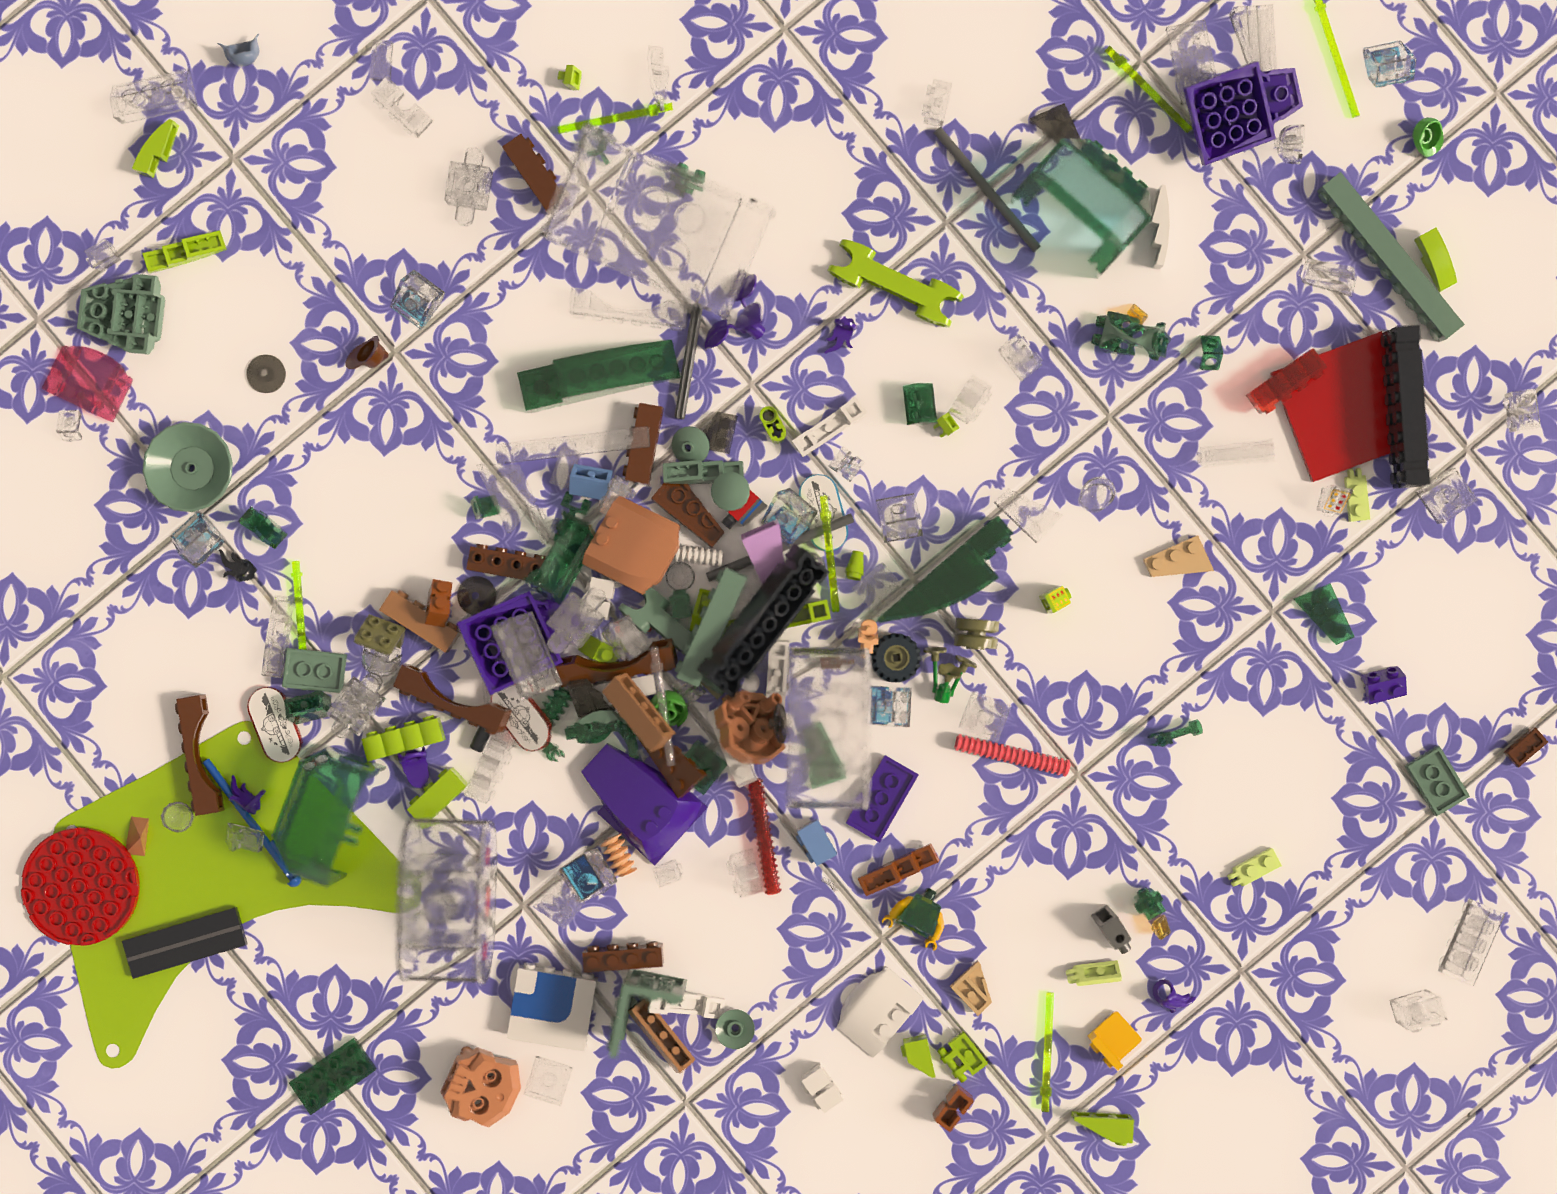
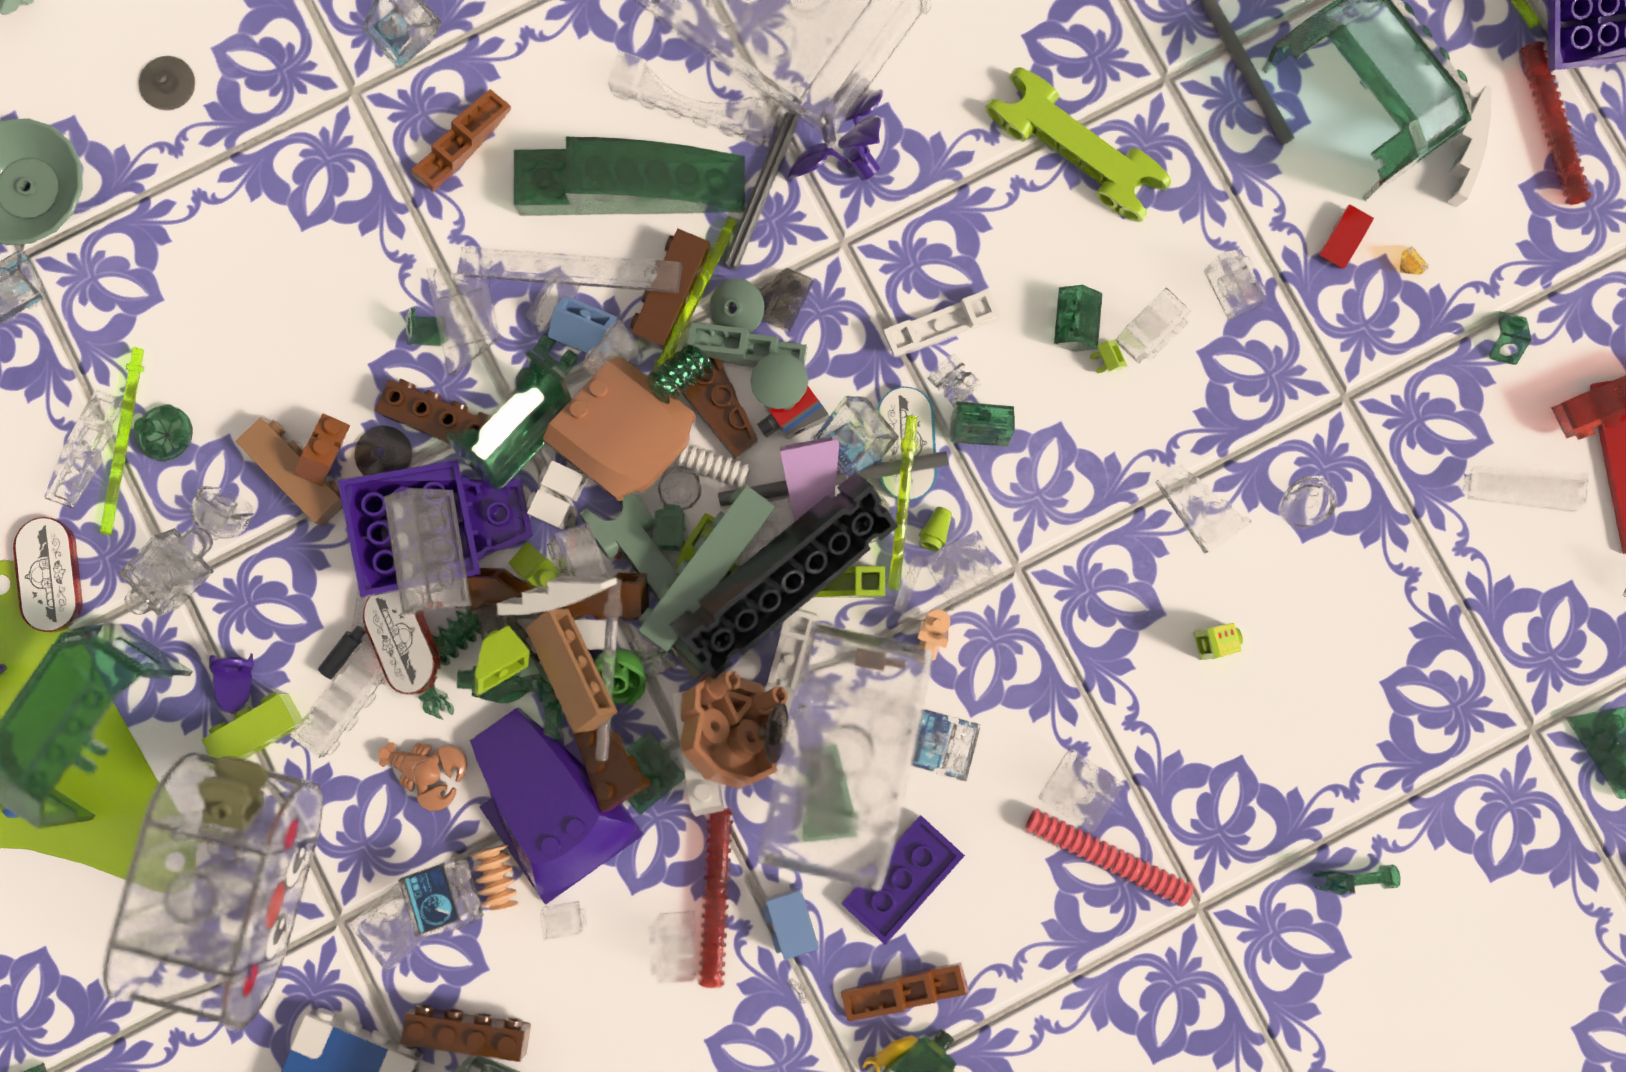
camera: 10 degrees right, 5 degrees down
(241, 569) = (58, 344): black piece -> none
(263, 527) = (103, 287): clear green brick -> none
(307, 707) = (96, 558): clear green brick -> none
(314, 670) = (121, 507): sand green tile -> none
(327, 614) = (163, 433): none -> clear green dish
(367, 354) = (315, 85): reddish brown piece -> none
(380, 635) = (227, 477): olive bracket -> none
(403, 739) = (225, 635): lime brick -> none
(417, 683) = (266, 560): reddish brown arch -> none
(444, 838) = (235, 794): none -> olive piece
(477, 371) = (462, 140): none -> dark orange slope
(544, 529) = (501, 379): clear slope -> none
(555, 797) = (424, 771): none -> nougat animal
(576, 620) = (512, 516): clear brick -> none
(591, 715) = (499, 659): none -> lime slope
(619, 666) = (559, 593): none -> white slope
(660, 448) = (697, 292): none -> clear neon green bar
(662, 501) = (678, 373): none -> clear green piece
(770, 431) = (854, 301): lime beam -> none
(843, 331) = (989, 195): dark purple piece -> none
(844, 606) = (908, 584): none -> clear tile
(870, 489) = (982, 424): none -> clear green brick
(895, 658) = (967, 675): black wheel -> none
(899, 517) = (1015, 475): clear slope -> none
(949, 671) = (1027, 740): plant -> none
(956, 577) = (1080, 576): clear green slope -> none
(976, 633) = (1093, 665): olive wheel -> none
(1088, 307) = (1346, 236): none -> red slope
(1153, 338) = (1433, 297): clear green hips -> none
(1179, 559) = (1413, 622): tan wing -> none
(1215, 199) = (1555, 123): none -> clear red piece

